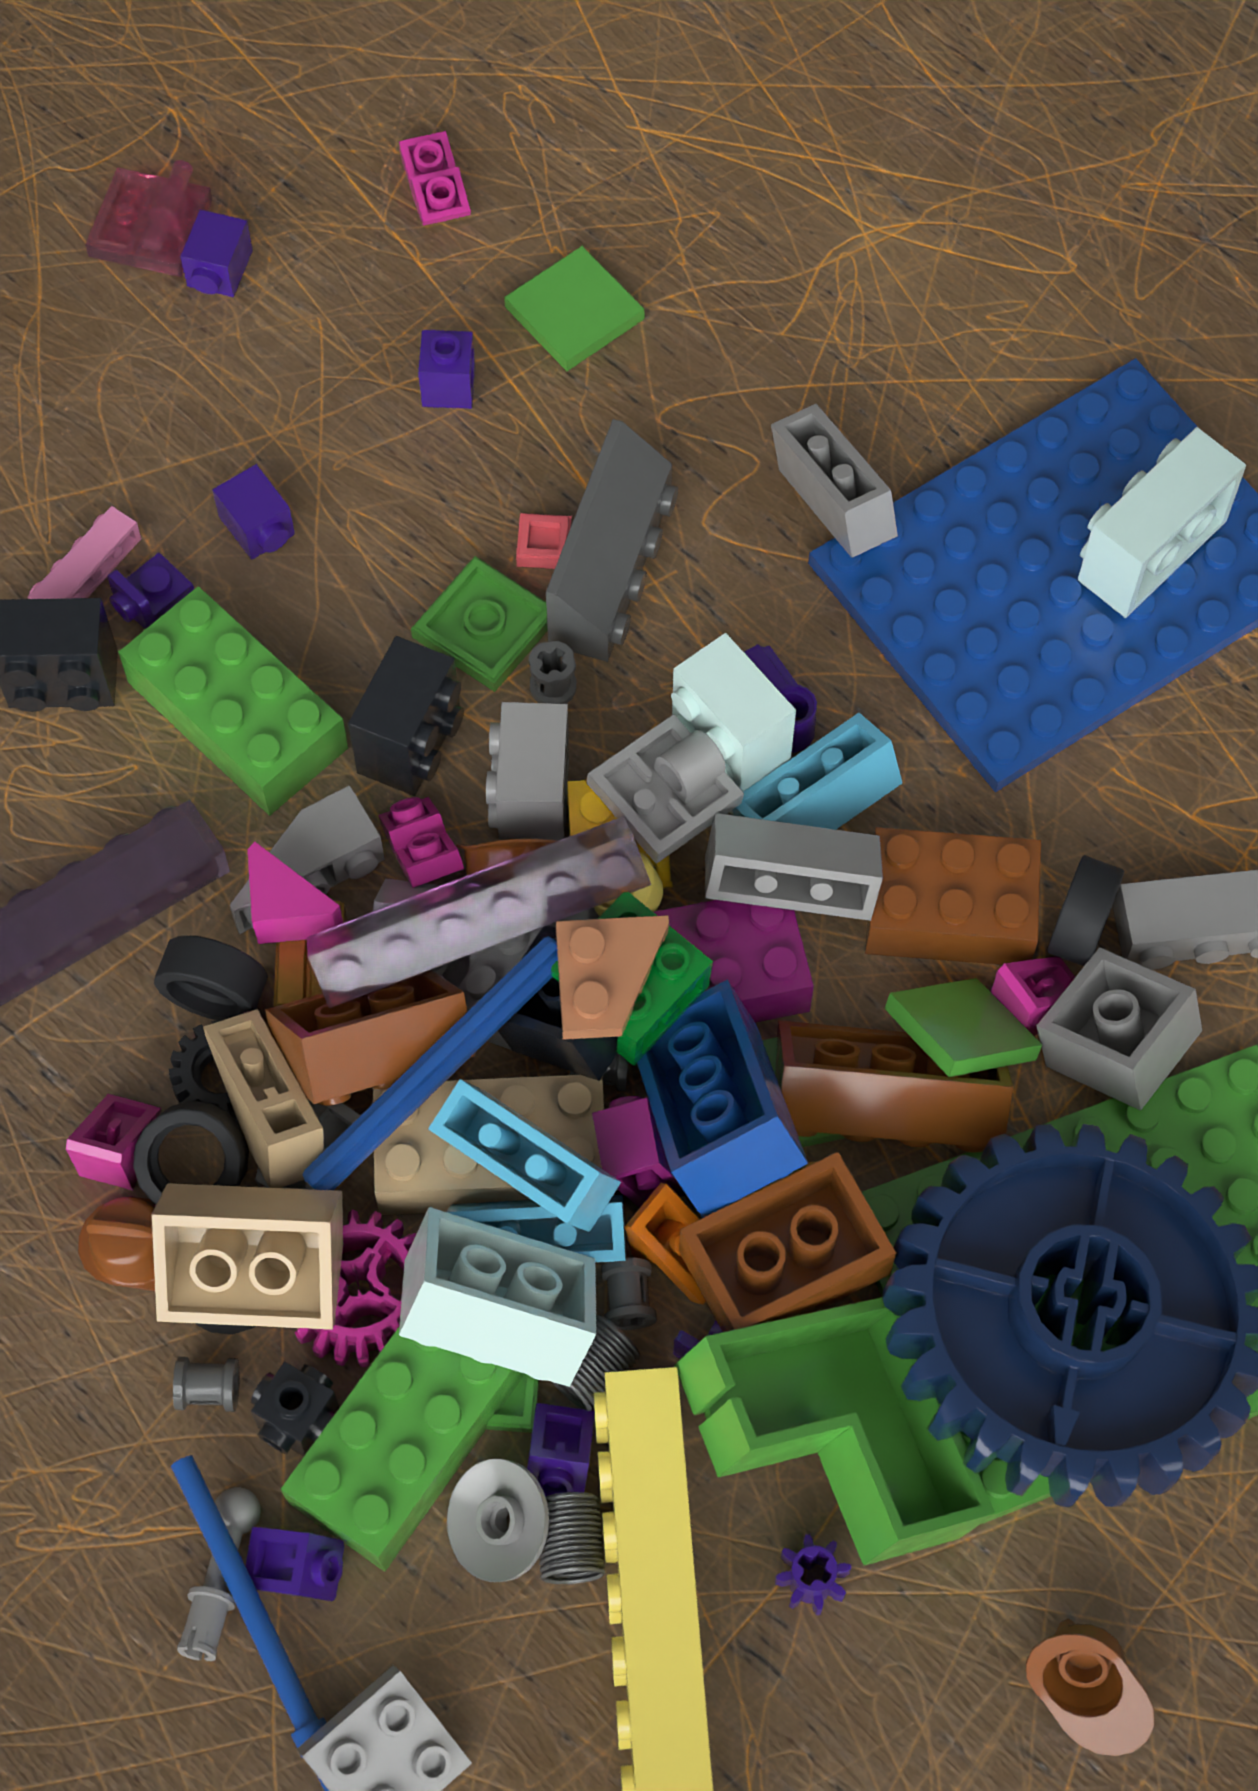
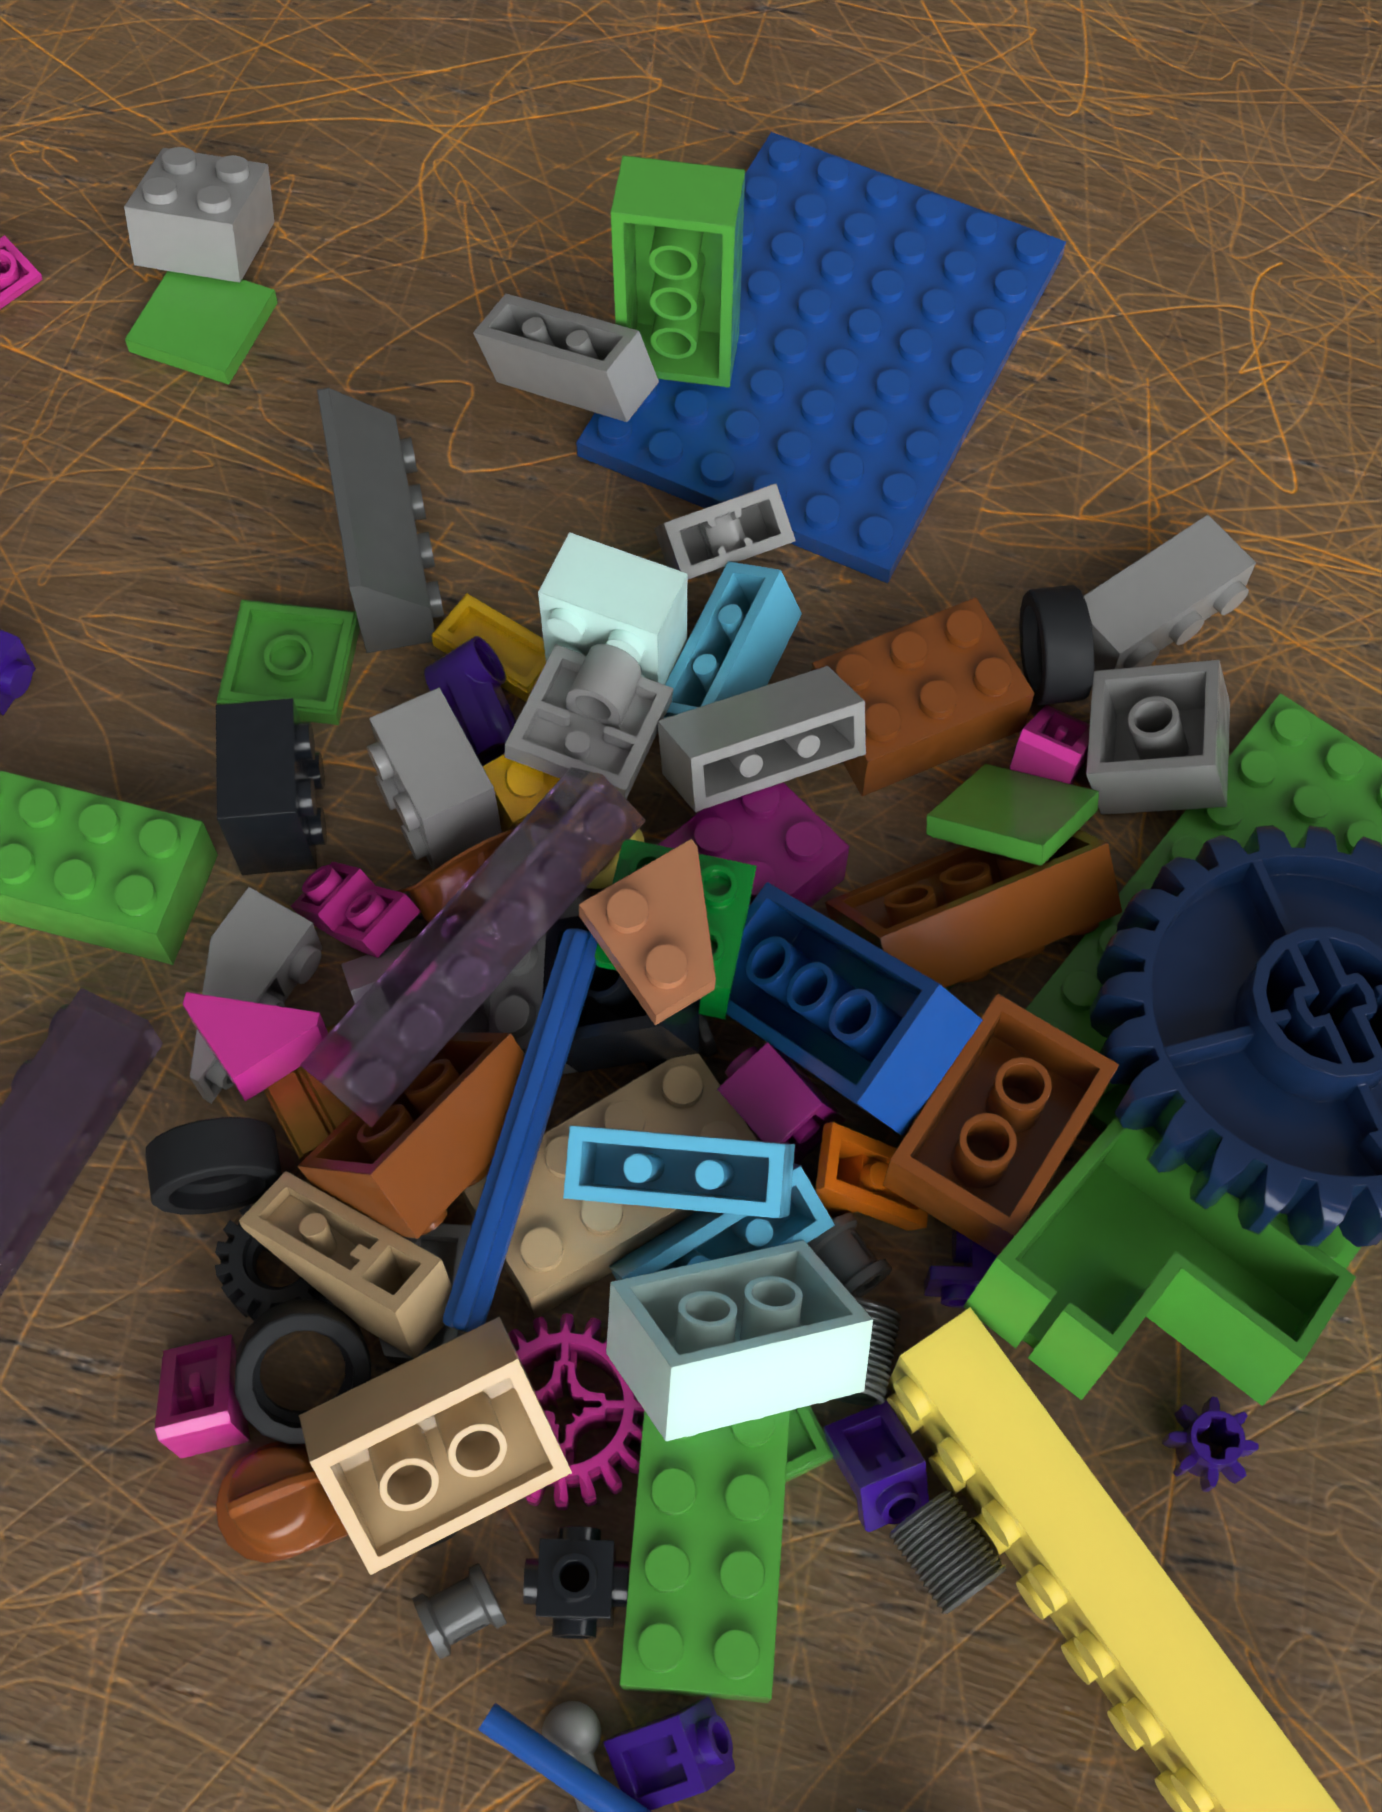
camera: 30 degrees left, 0 degrees up
(447, 369) = (106, 430): dark purple brick -> none
(479, 1520) = (845, 1600): light grey dish -> none
(541, 539) = (303, 554): coral tile -> none
(550, 675) = (383, 673): dark grey bush -> none
(604, 714) = (472, 686): none -> dark purple piece
(618, 220) = (200, 214): none -> light grey brick
(642, 682) = (516, 646): none -> yellow tile
(873, 688) = (726, 532): none -> light grey brick
(947, 455) = (680, 264): none -> bright green brick
(1159, 520) = (901, 251): light aqua brick -> none

